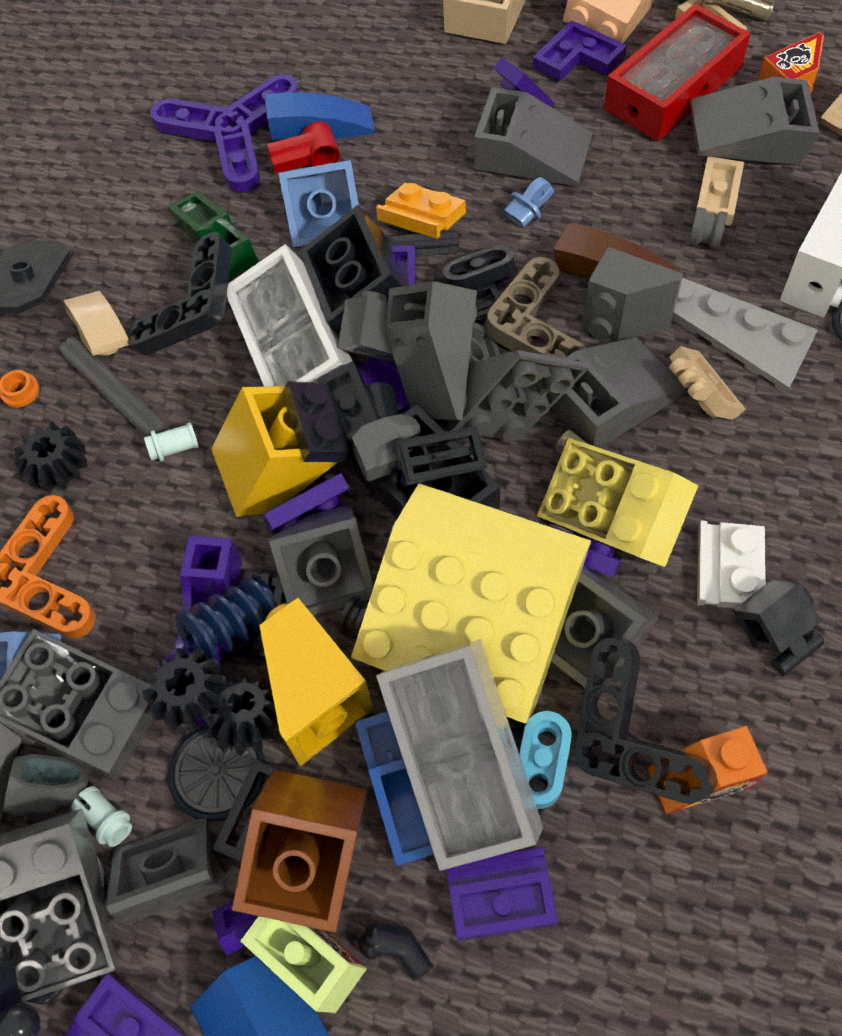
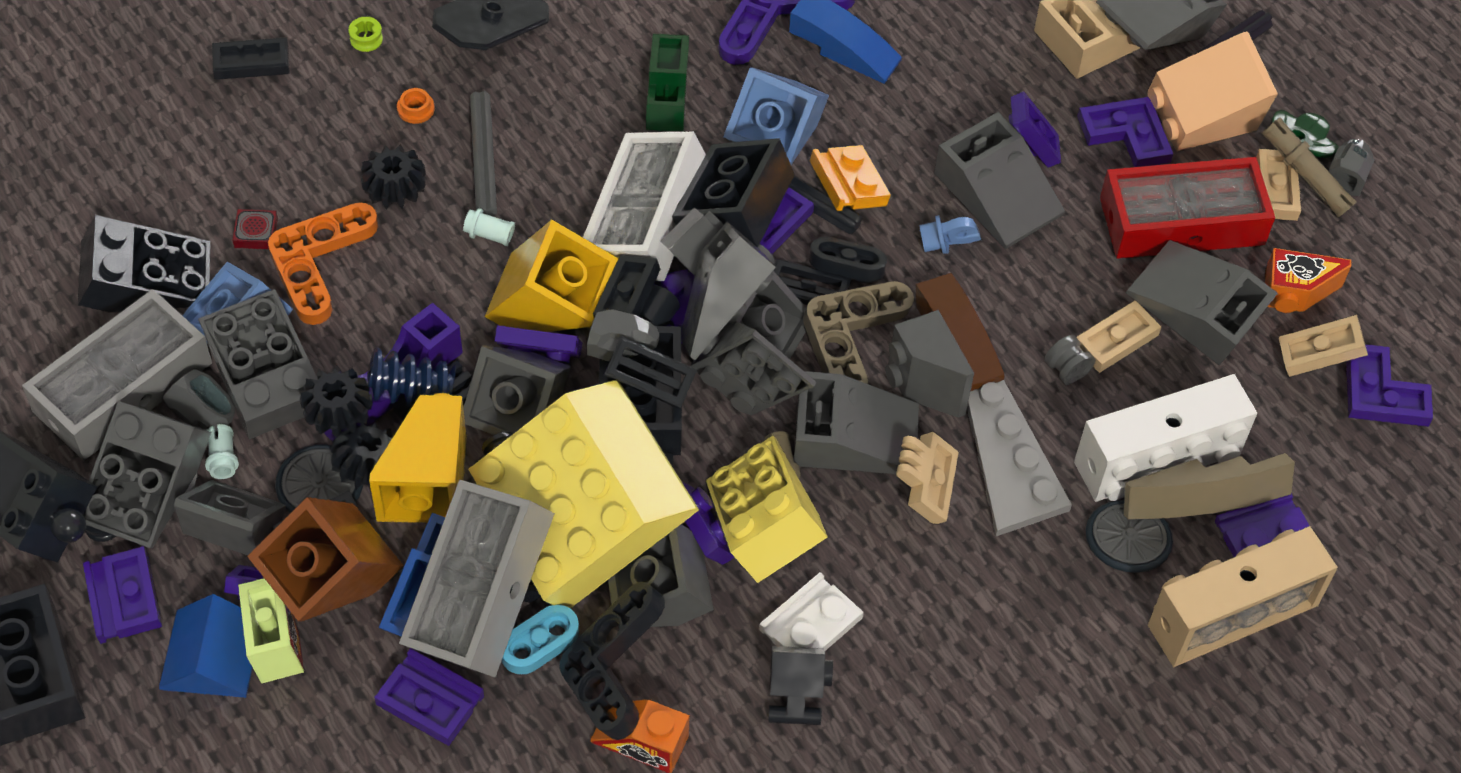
camera: 30 degrees right, 5 degrees down
(96, 323) = (514, 94): tan slope -> none
(195, 313) = (601, 134): black beam -> none
(313, 147) = (814, 62): red piece -> none
(315, 422) = (585, 283): black plate -> none
(397, 941) = (339, 674): black arm -> none

